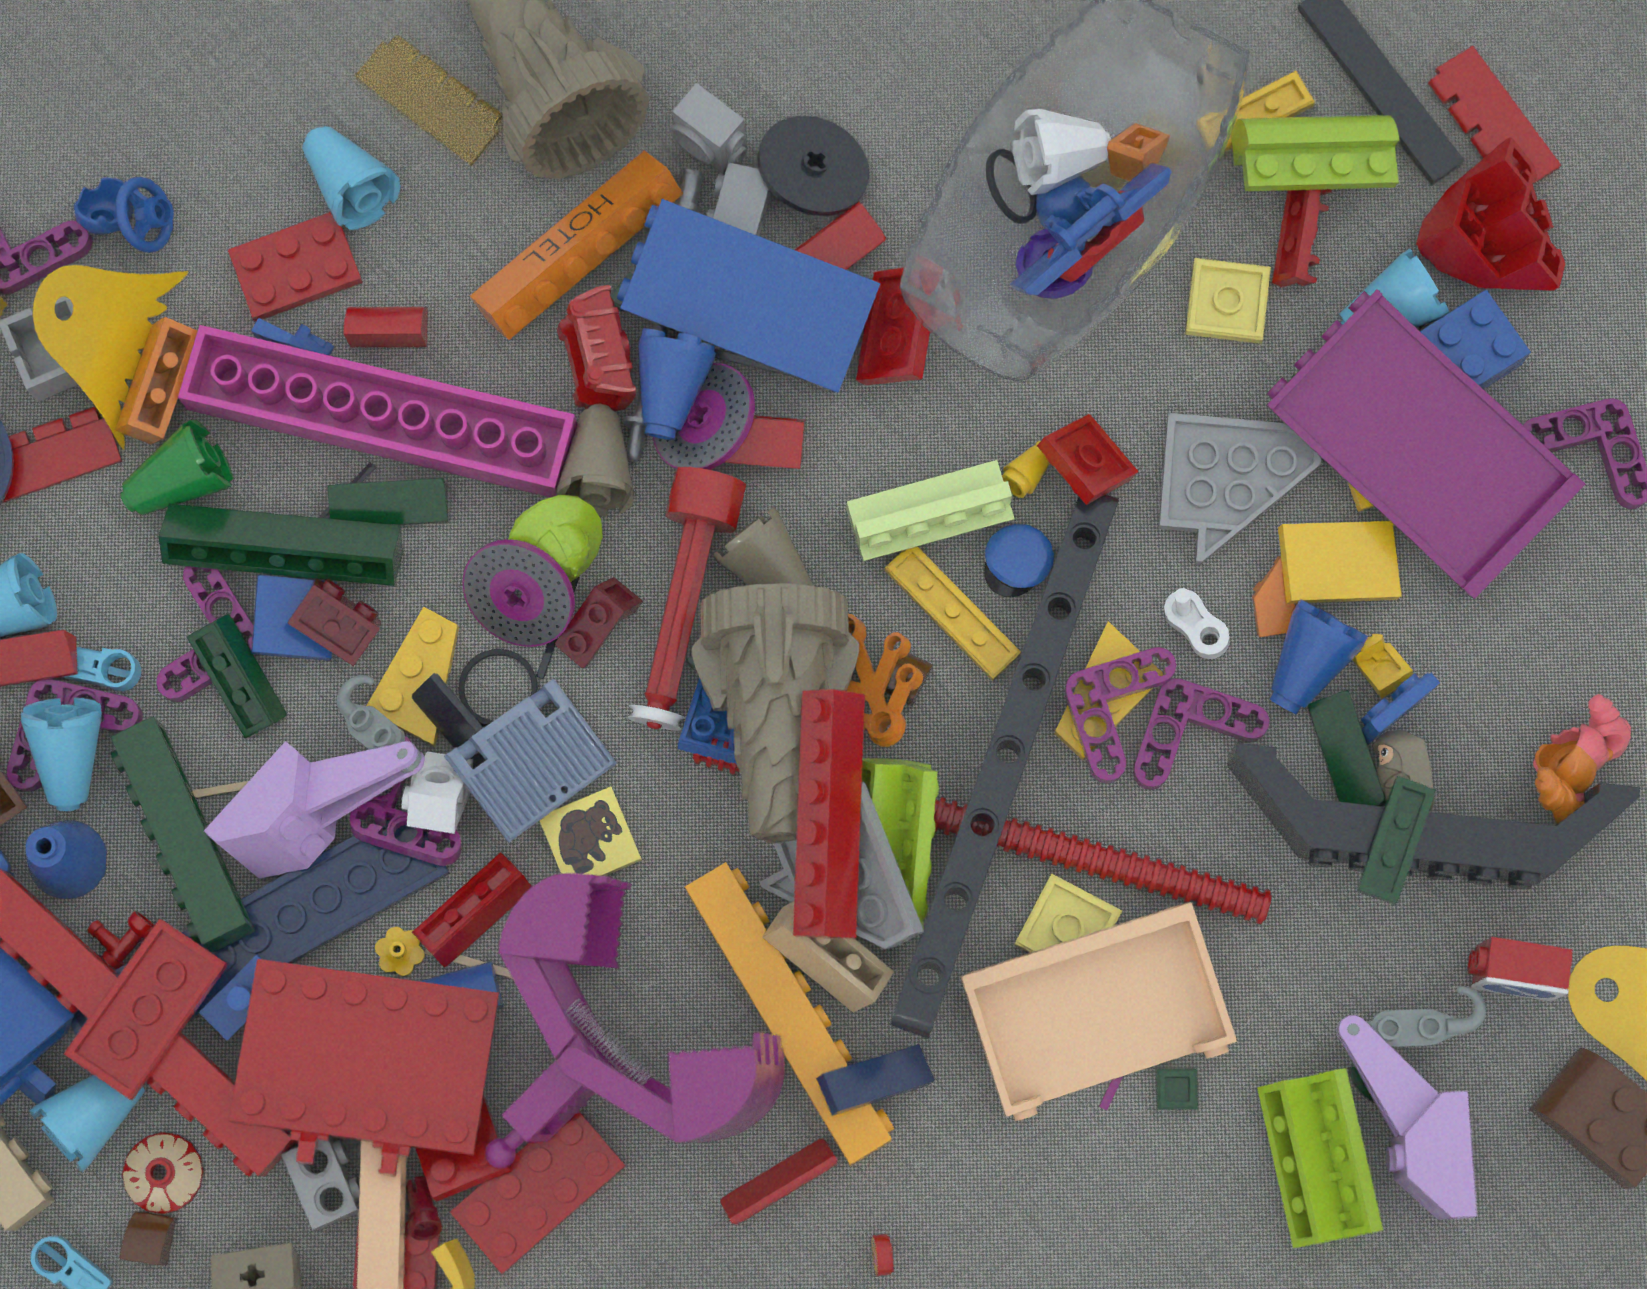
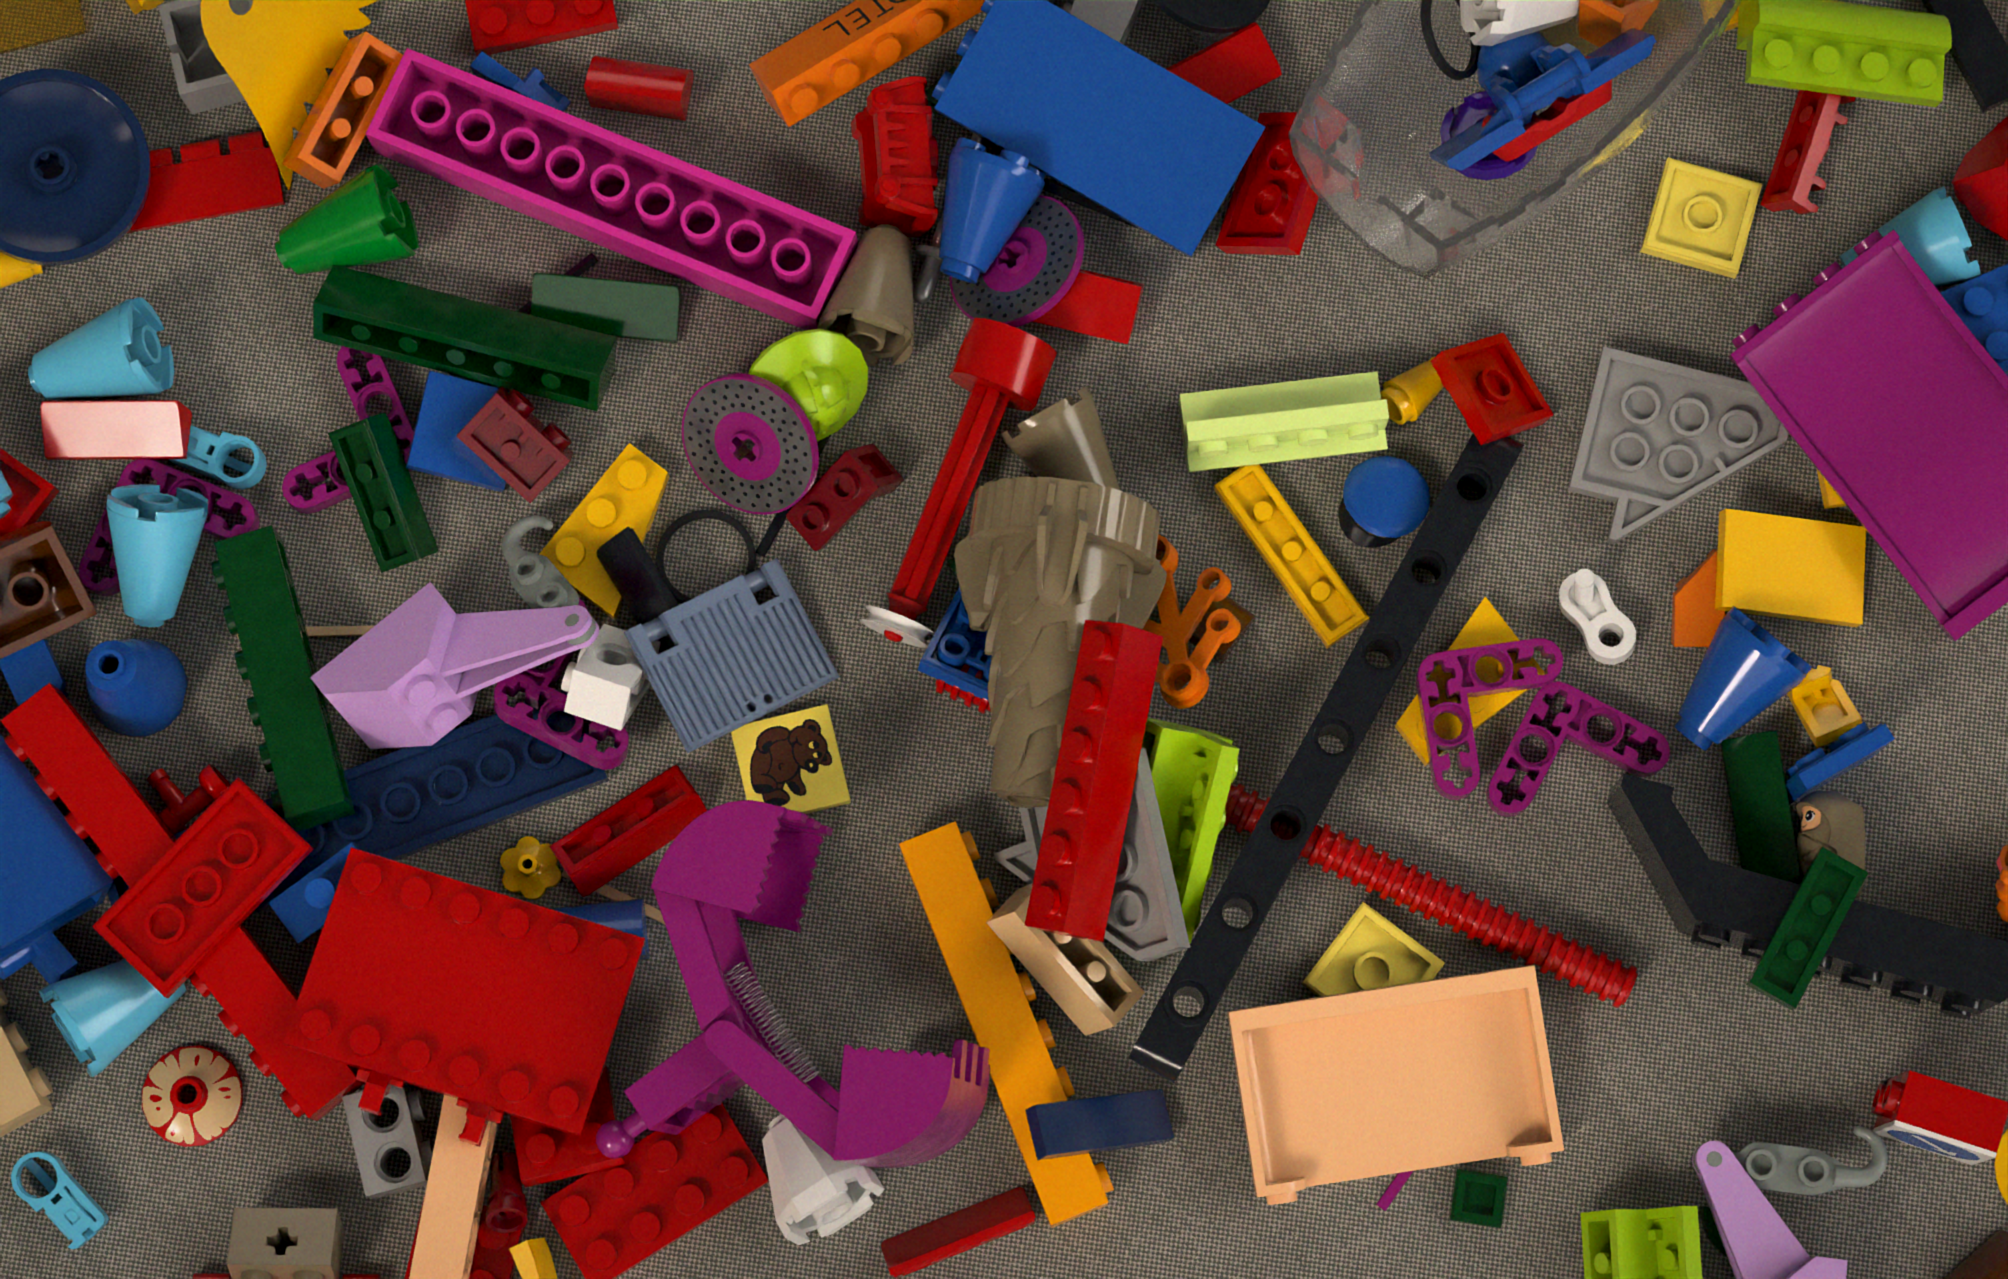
camera: 10 degrees right, 0 degrees up
(148, 1238) = (160, 1174): reddish brown brick -> none
(659, 1165) = (810, 1186): none -> white cone

